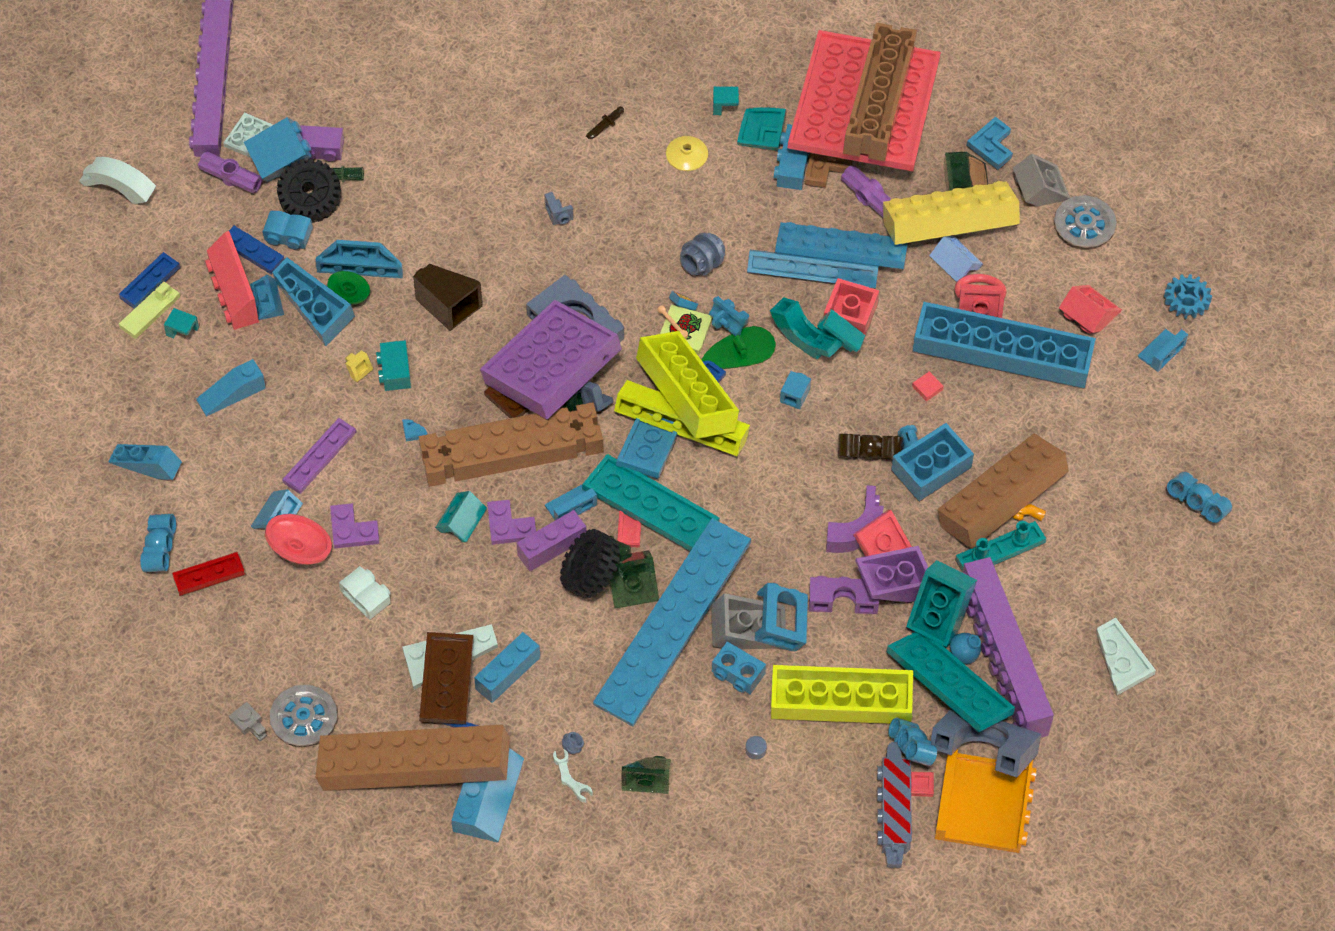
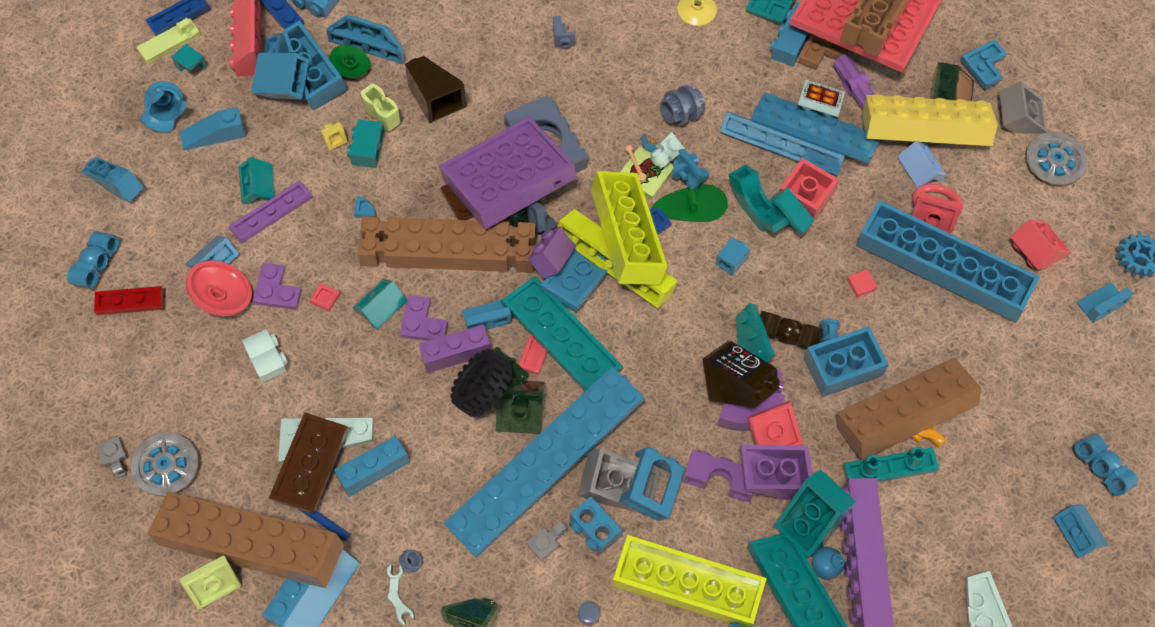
camera: 15 degrees right, 5 degrees up
(173, 376) = (162, 106): none -> dark azure helmet
(285, 317) = (280, 75): none -> dark azure brick
(293, 428) = (256, 180): none -> teal panel
(391, 805) = (210, 582): none -> yellowish green tile
(397, 326) = (380, 107): none -> yellowish green brick
(403, 524) = (324, 297): none -> coral tile
(618, 426) = (551, 252): none -> medium lavender brick
(695, 696) = (545, 542): none -> light grey plate
(701, 302) = (666, 150): none -> light aqua plate
(835, 498) = (738, 376): none -> dark brown slope
(838, 466) = (752, 333): none -> teal wing
(839, 215) = (821, 98): none -> tile
(1190, 562) = (1080, 530): none -> dark azure panel

